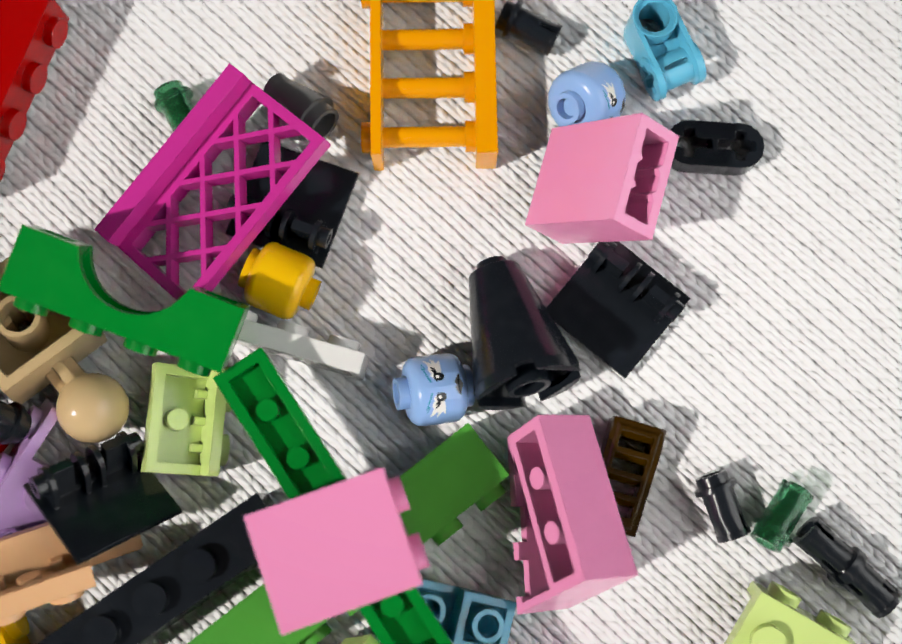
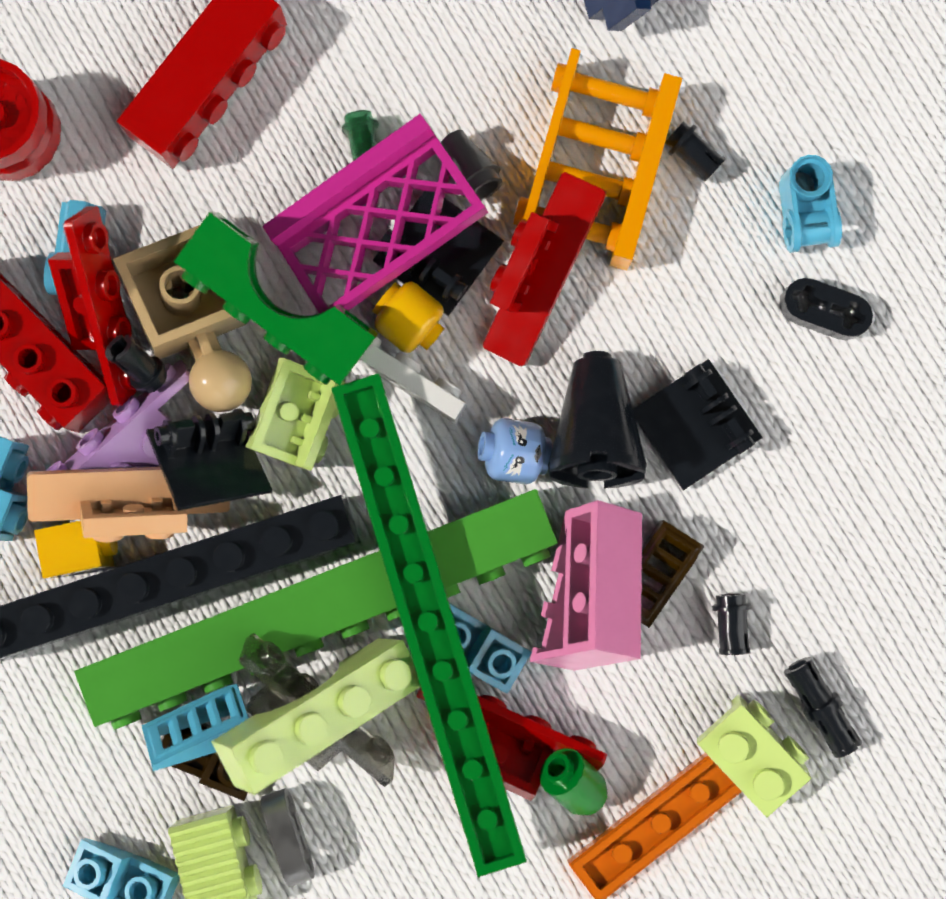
camera: 20 degrees right, 5 degrees up
(336, 549) = (397, 561): bright pink brick -> none
(403, 188) = (539, 267): none -> red bracket
(586, 94) = (726, 233): light blue head -> none
(603, 180) = (716, 313): bright pink brick -> none
(781, 516) = (780, 648): clear green pin -> none

